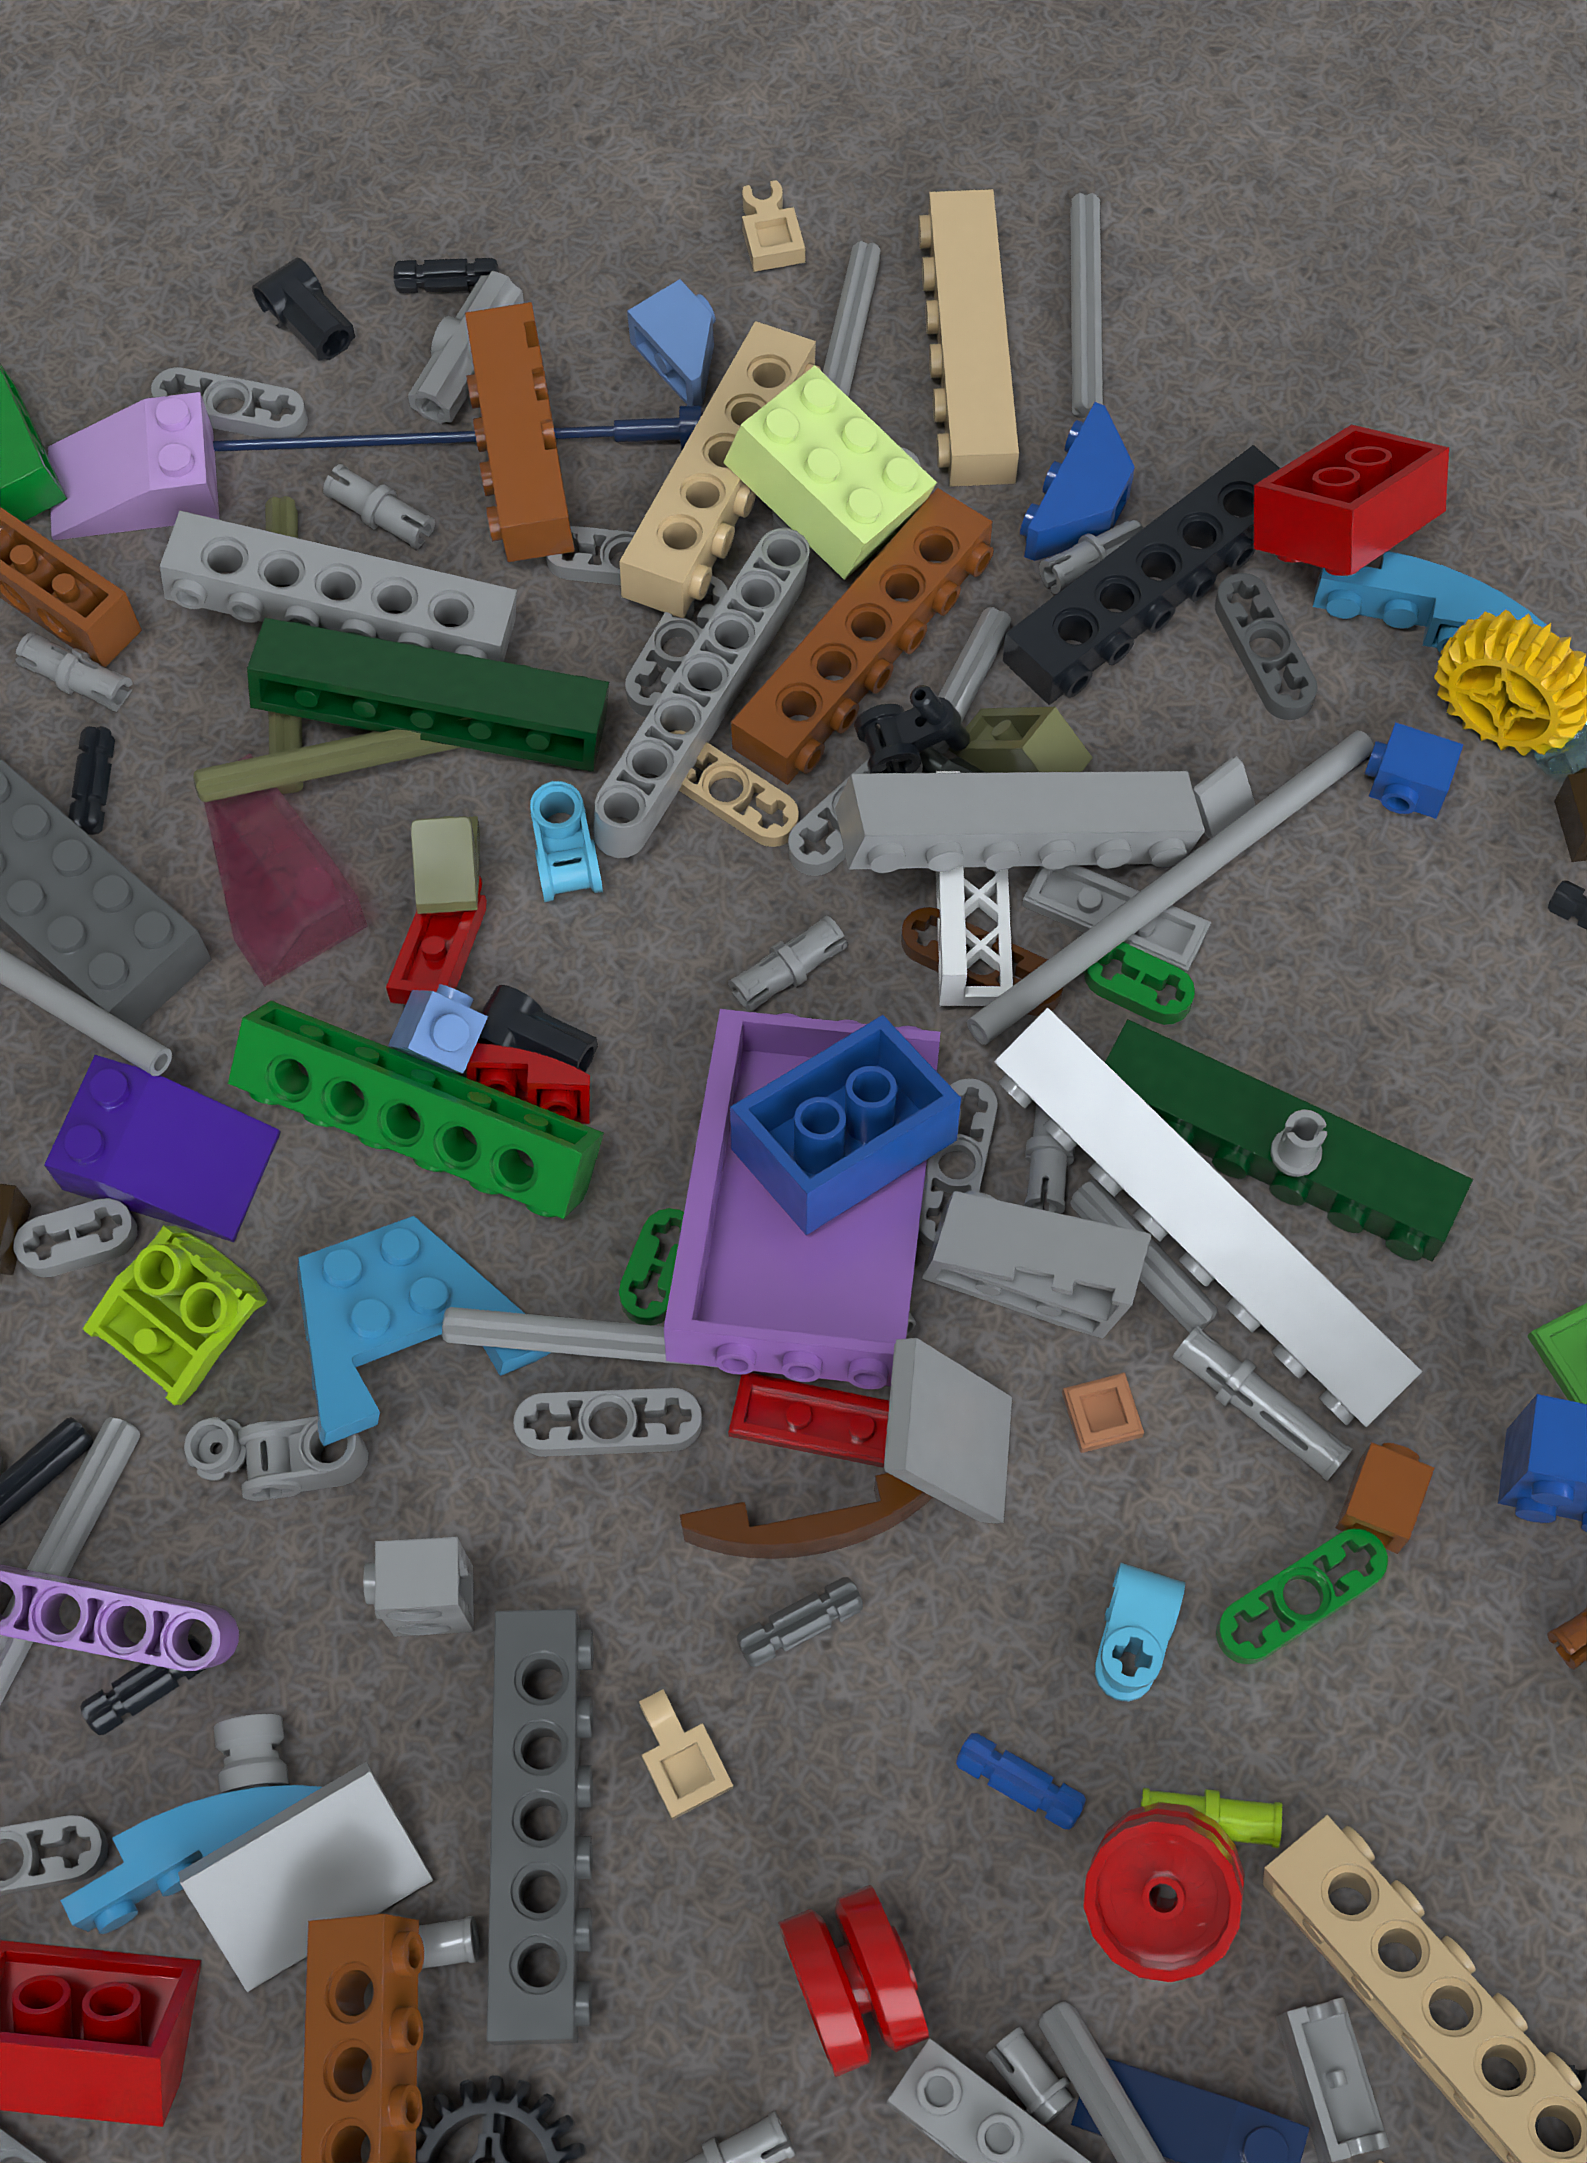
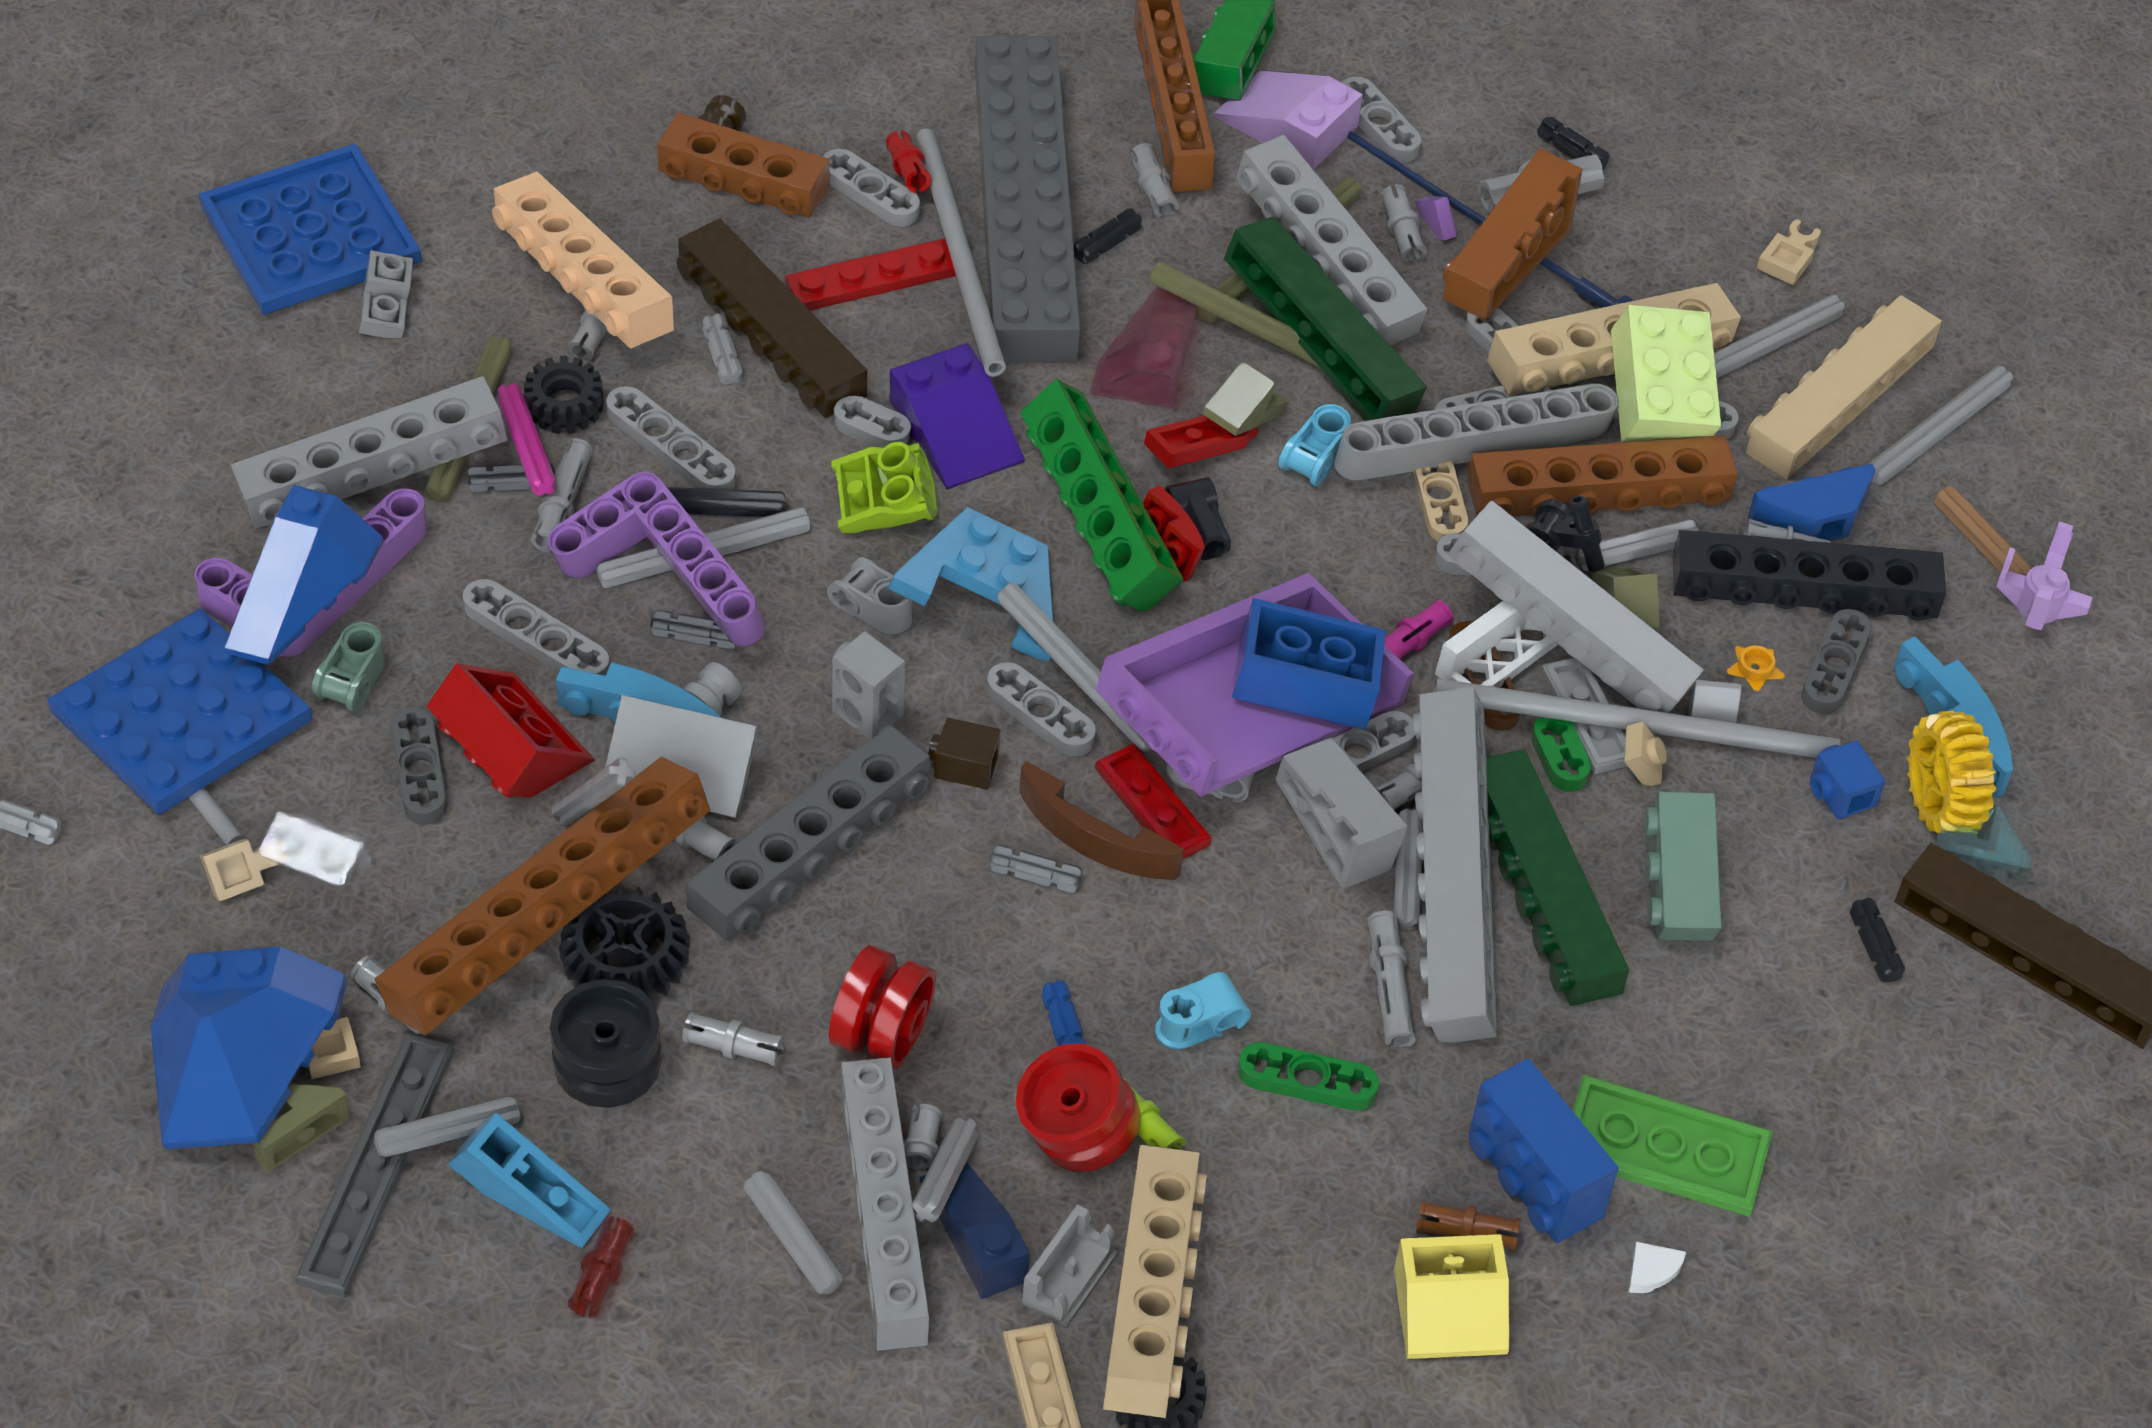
camera: 40 degrees right, 15 degrees down
(200, 1445) = (836, 559): light grey plate -> none
(289, 2054) = (593, 792): none -> light grey axle
(300, 304) = (1472, 103): black piece -> none
(402, 468) = (1438, 216): none -> medium lavender tile
(439, 1028) = (1151, 463): medium blue brick -> none
(595, 1558) = (965, 753): none -> dark brown brick
(676, 338) = (1669, 261): medium blue slope -> none
(684, 1763) = (909, 871): tan plate -> none
(788, 963) = (1376, 593): light grey pin -> none
(870, 974) = (1431, 620): none -> dark pink pin
(948, 1431) = (1201, 832): light grey tile -> none
(1102, 1412) = (1301, 916): nougat tile -> none
(1200, 702) = (1755, 655): none -> light orange plate
(1221, 913) = (1644, 754): none -> tan plate
(1243, 391) = (1978, 530): none -> medium nougat axle
(1298, 1146) = (1542, 868): light grey pin -> none
(1350, 499) = (1963, 614): red brick -> none
(1361, 396) = (2045, 590): none -> lavender piece
(1386, 1494) = (1406, 1067): dark orange brick -> none
(1390, 1011) = (1683, 866): none -> sand green wedge

